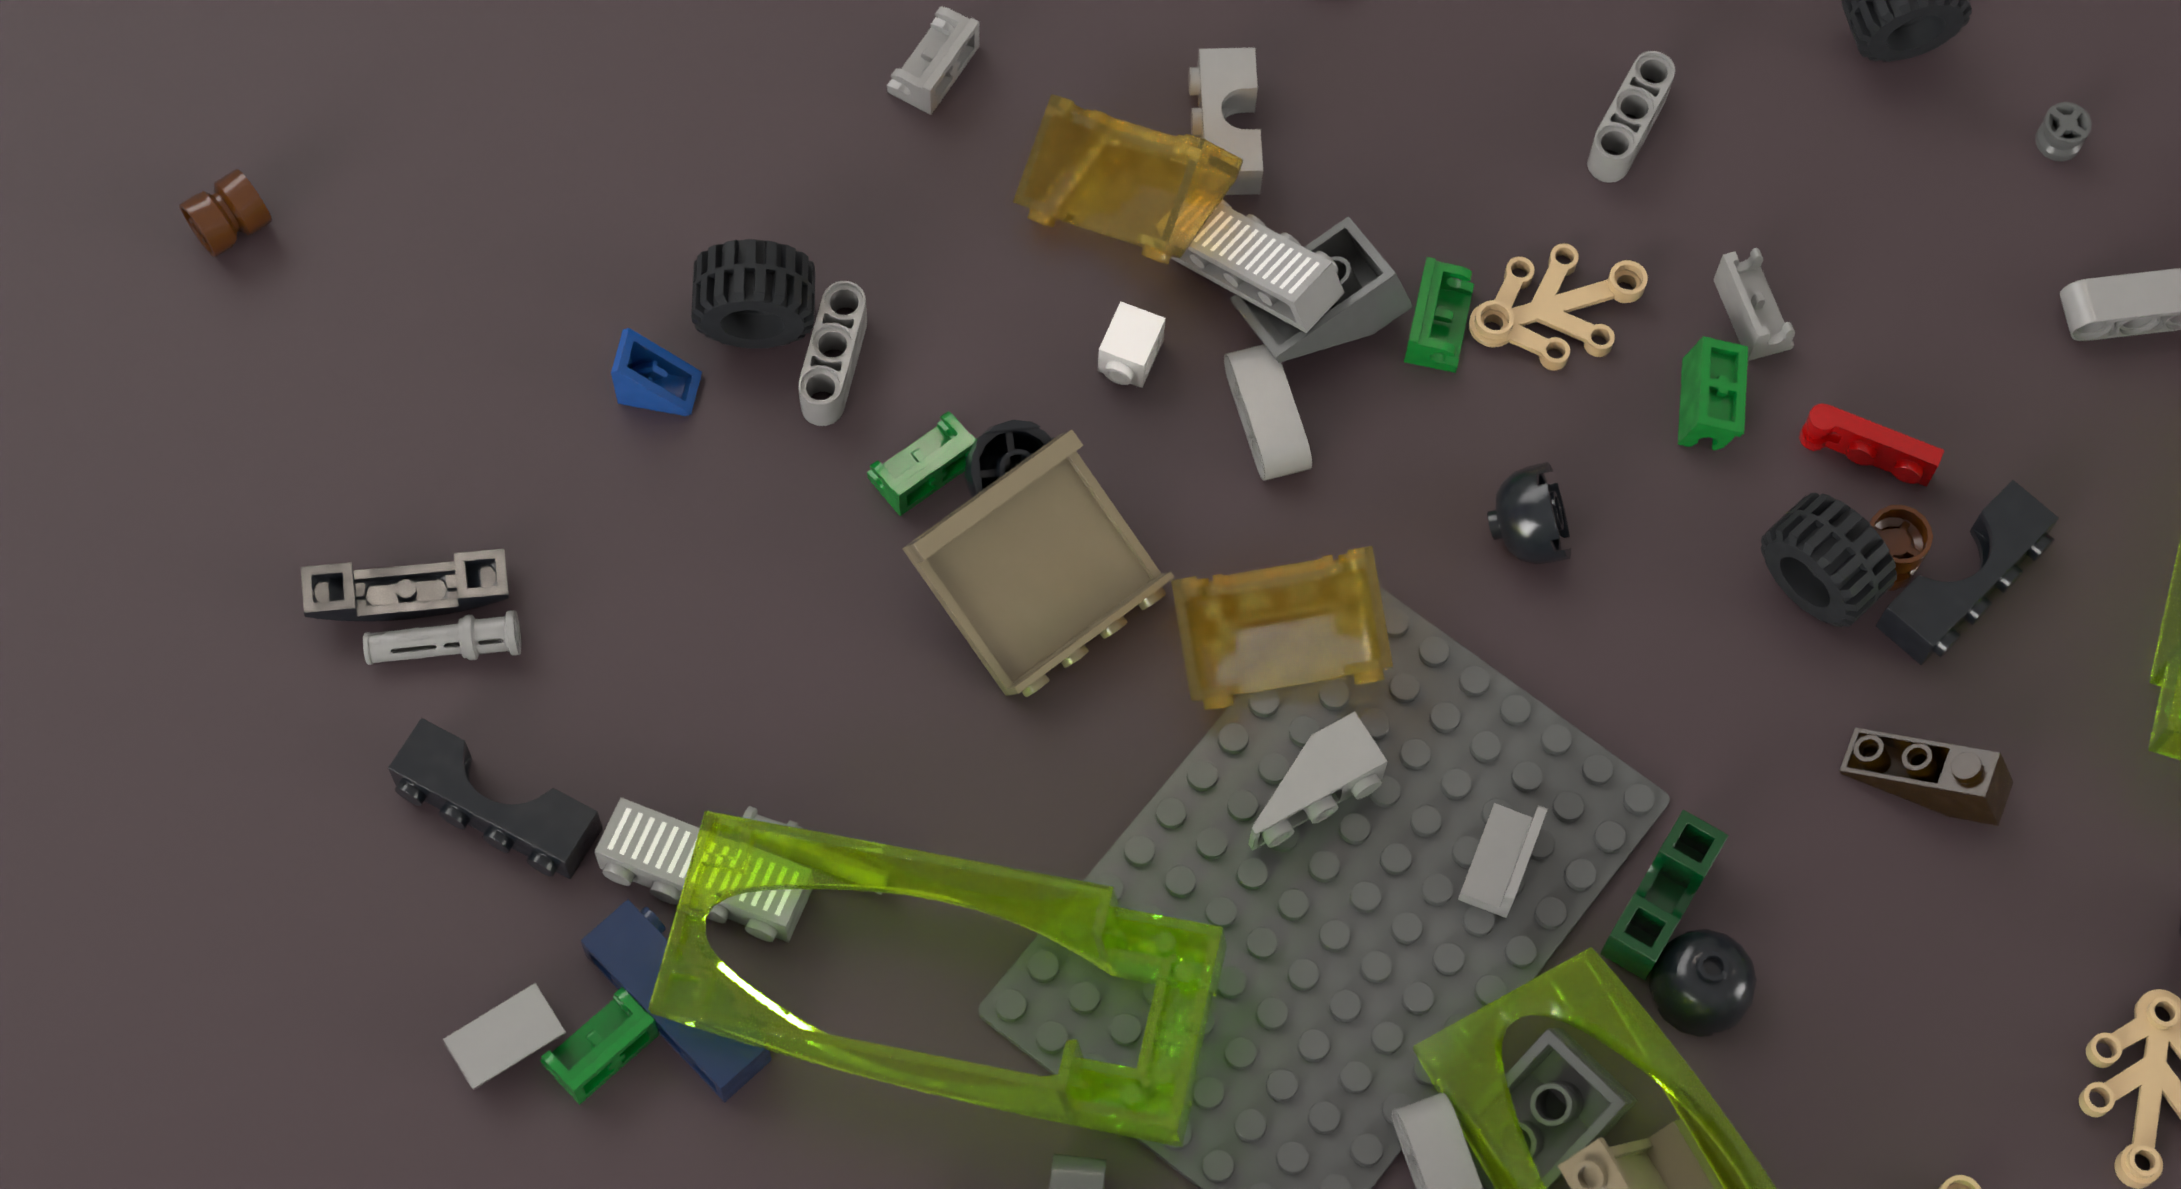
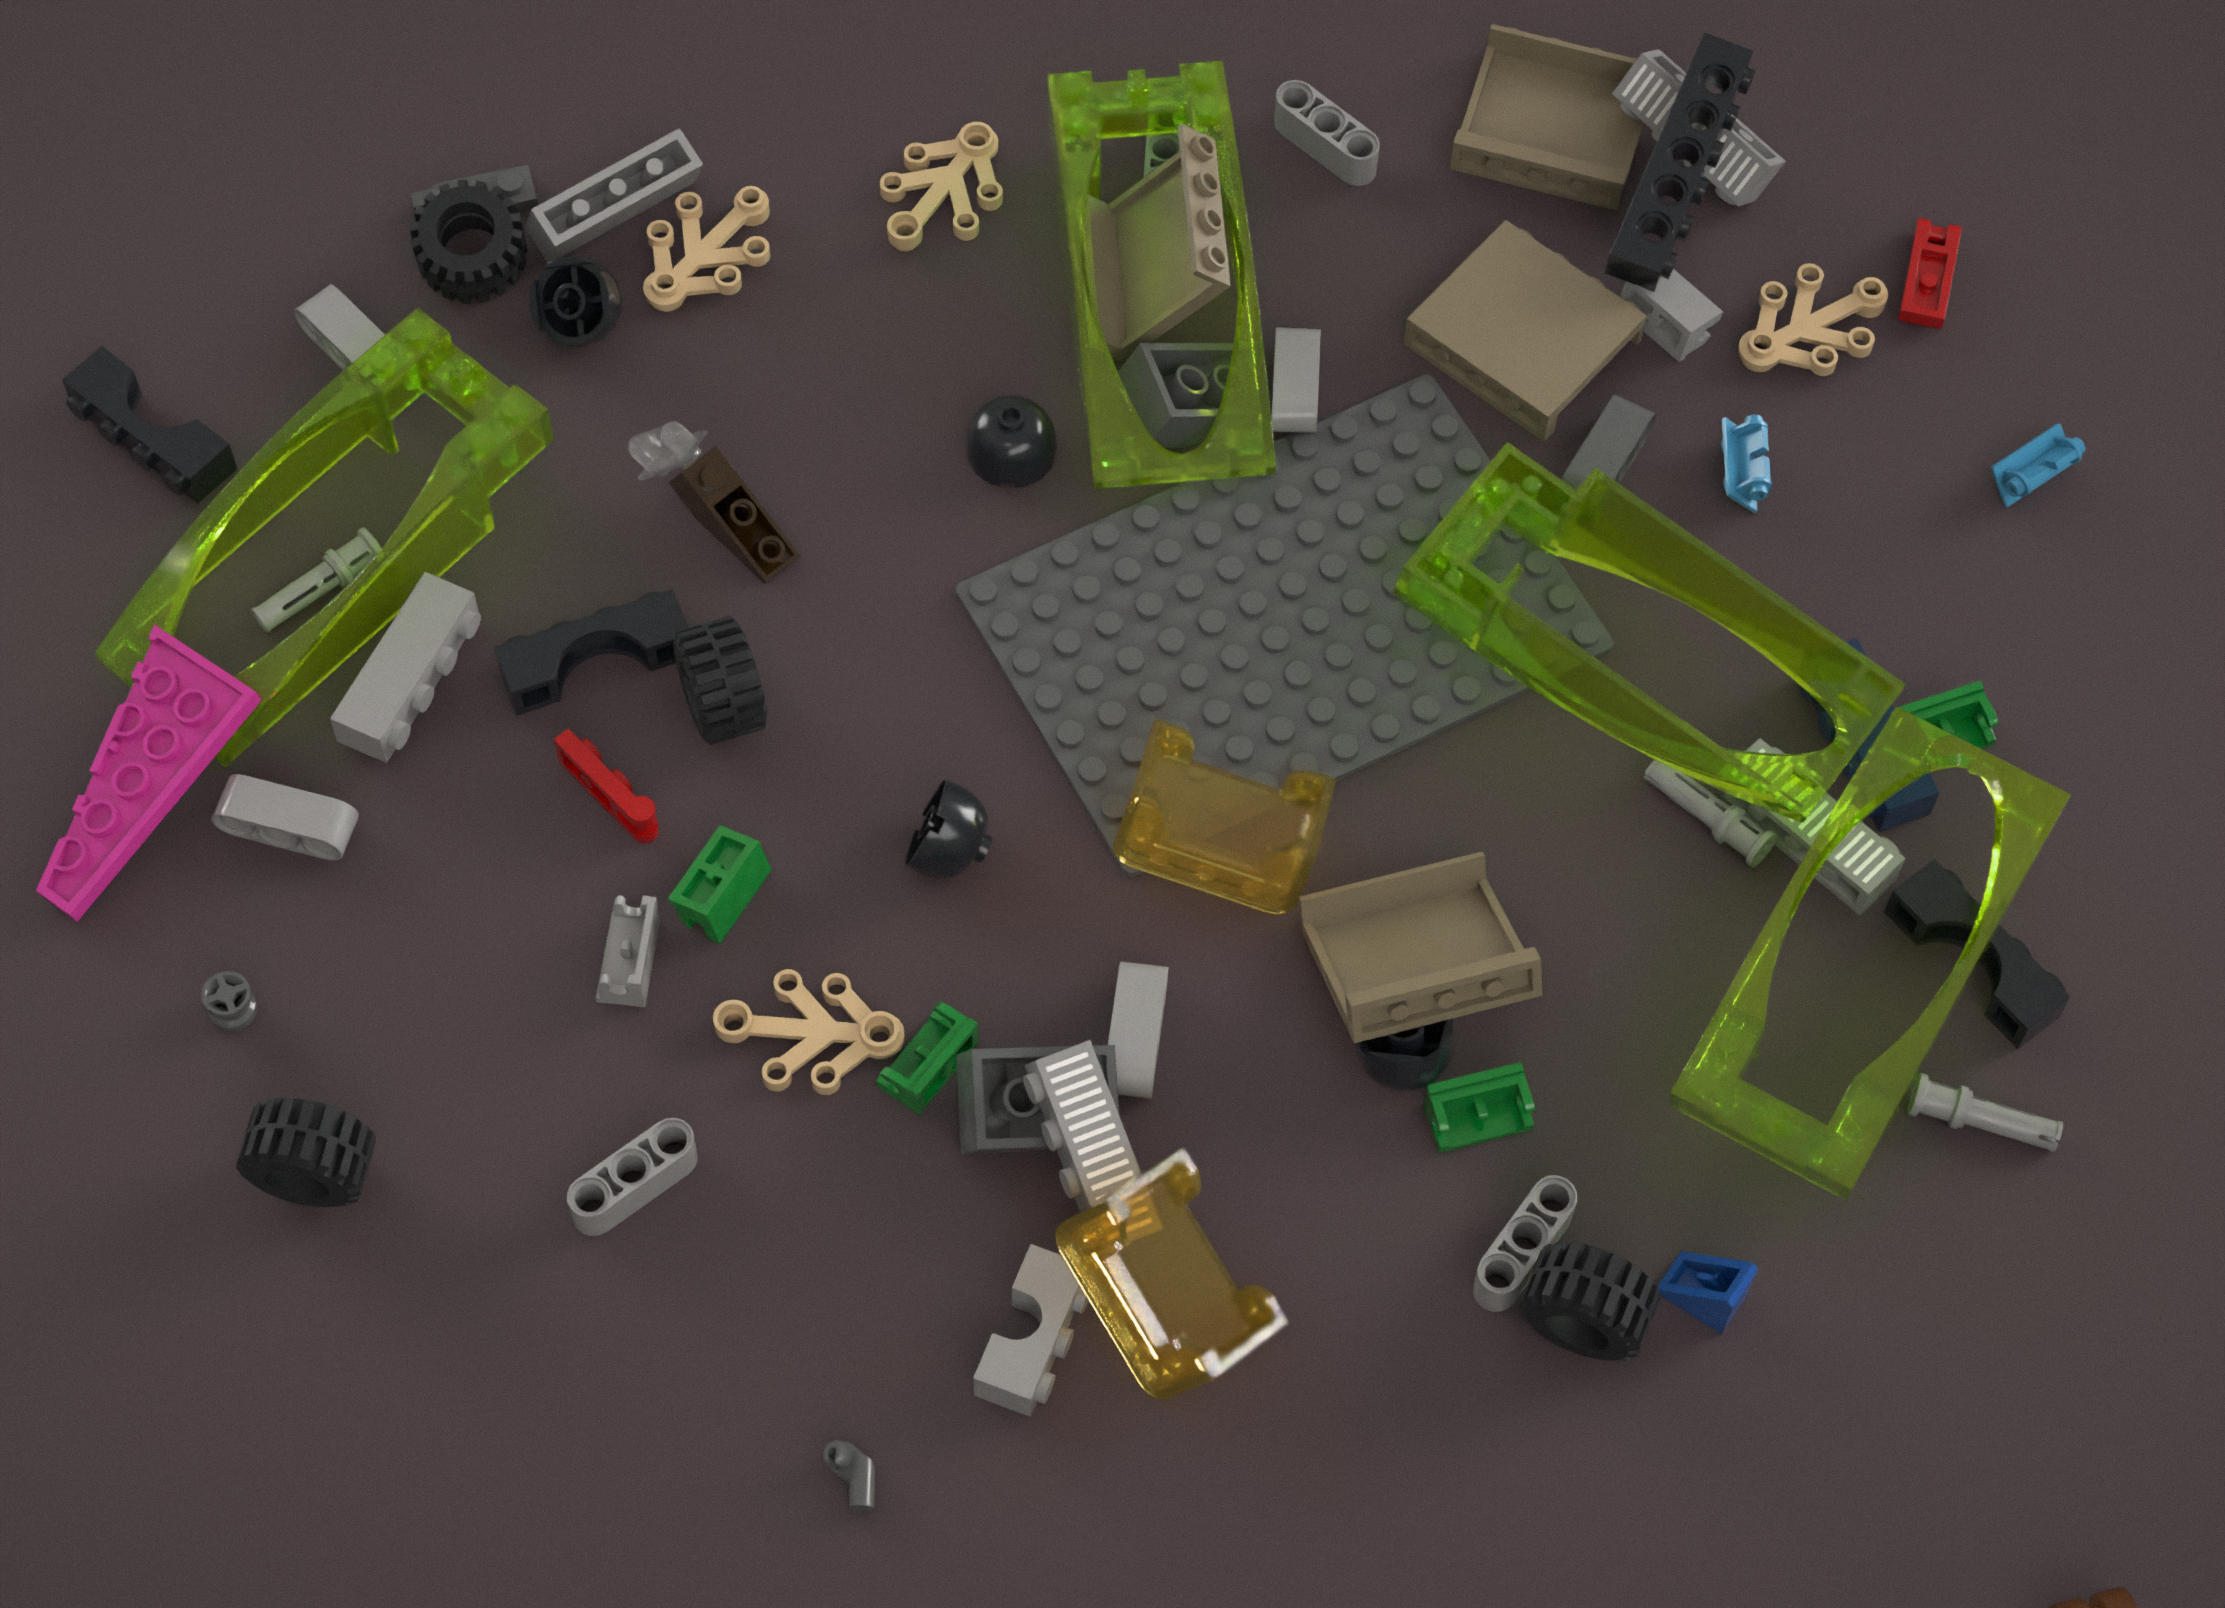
camera: 155 degrees left, 5 degrees down
(404, 591) = (2007, 1179): slope -> none
(504, 1036) = (2037, 749): light grey hinge -> none
(567, 512) = (1839, 1152): none -> clear neon green windscreen
(936, 60) = (1299, 1522): light grey hinge -> none
(1131, 345) = (1235, 1139): white brick -> none
(1329, 769) = (1248, 687): light grey slope -> none
(1501, 859) = (1126, 572): light grey panel -> none
(1664, 894) = (1042, 484): dark green arch -> none
(1906, 536) = (649, 688): reddish brown wheel -> none
(2034, 799) = (665, 449): none -> clear hinge
(2125, 478) = (406, 668): none -> light grey brick

